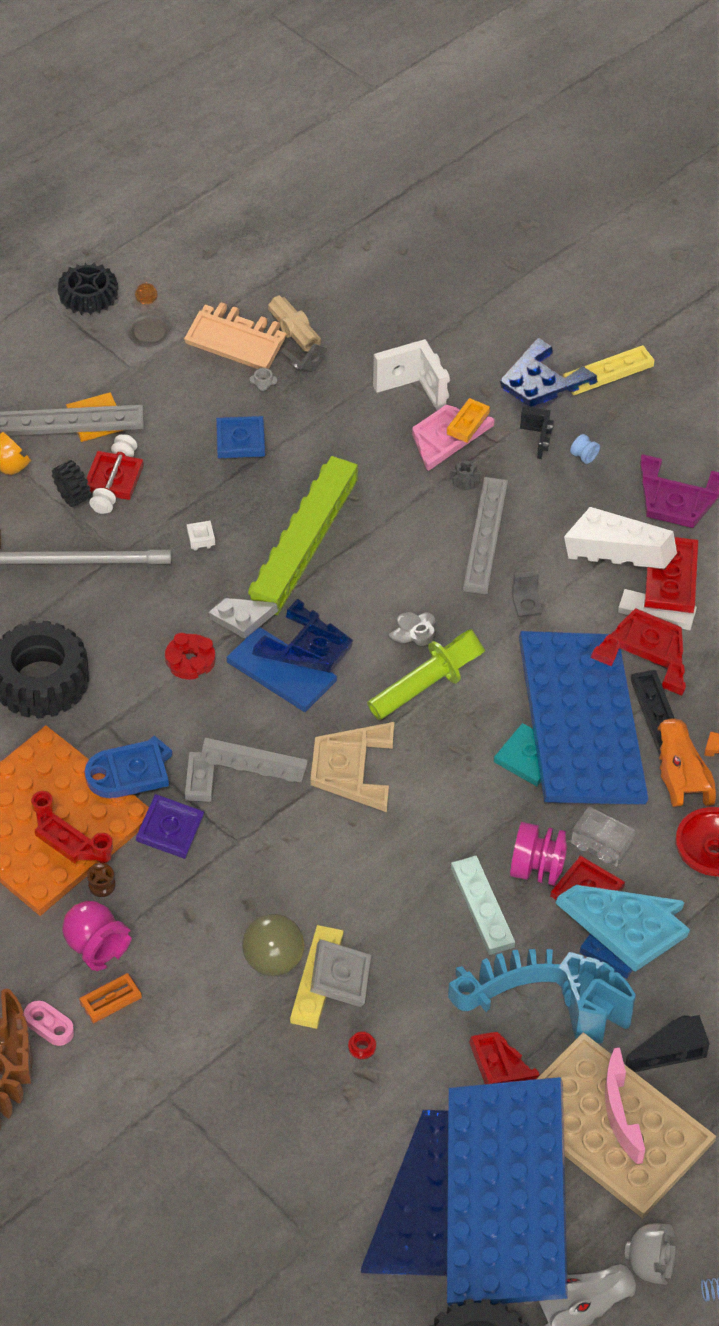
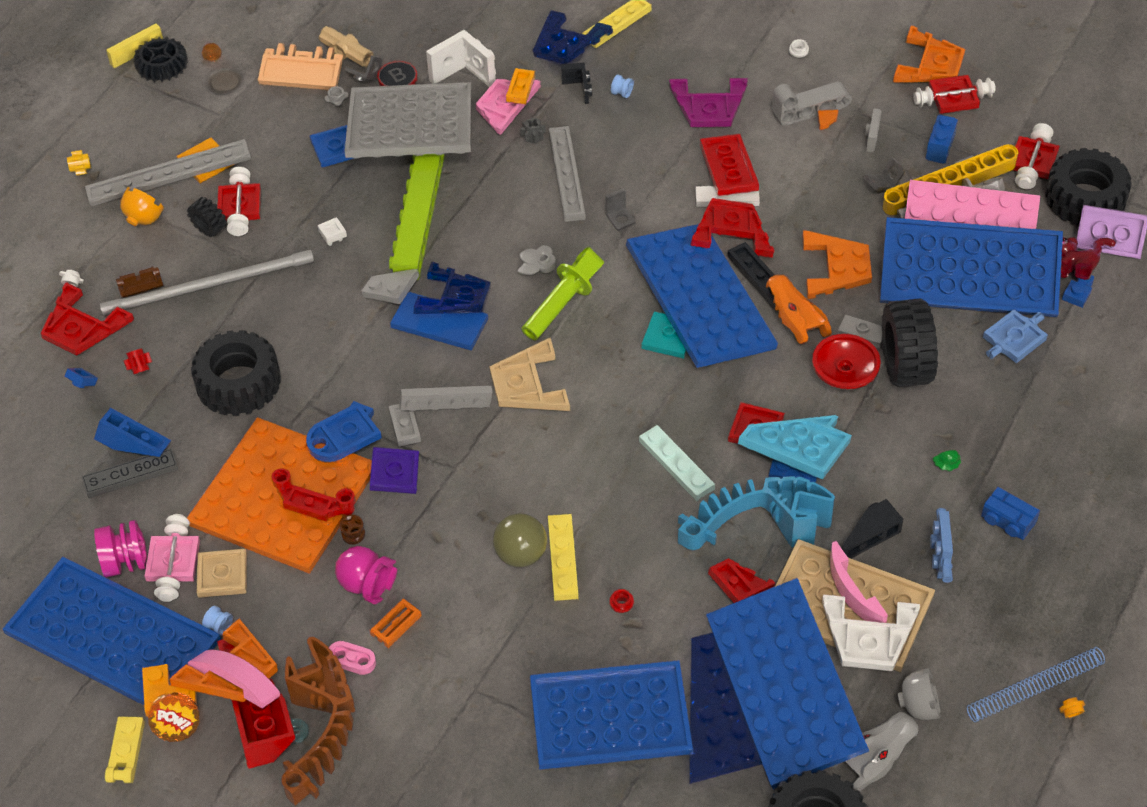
camera: 15 degrees left, 0 degrees up
(52, 269) = (126, 49): none -> light yellow plate
(190, 644) = (363, 320): red plate -> none
(301, 1170) = (610, 715): none -> blue plate
(330, 428) = (409, 120): none -> light grey plate
(338, 373) = (397, 73): none -> black tile
(340, 973) = (582, 548): light grey tile -> none
(538, 853) = (709, 408): dark pink wheel -> none
(602, 836) = (753, 382): clear brick -> none
(614, 1174) = (867, 642): none -> white wing
(620, 539) = (680, 148): white wedge -> none

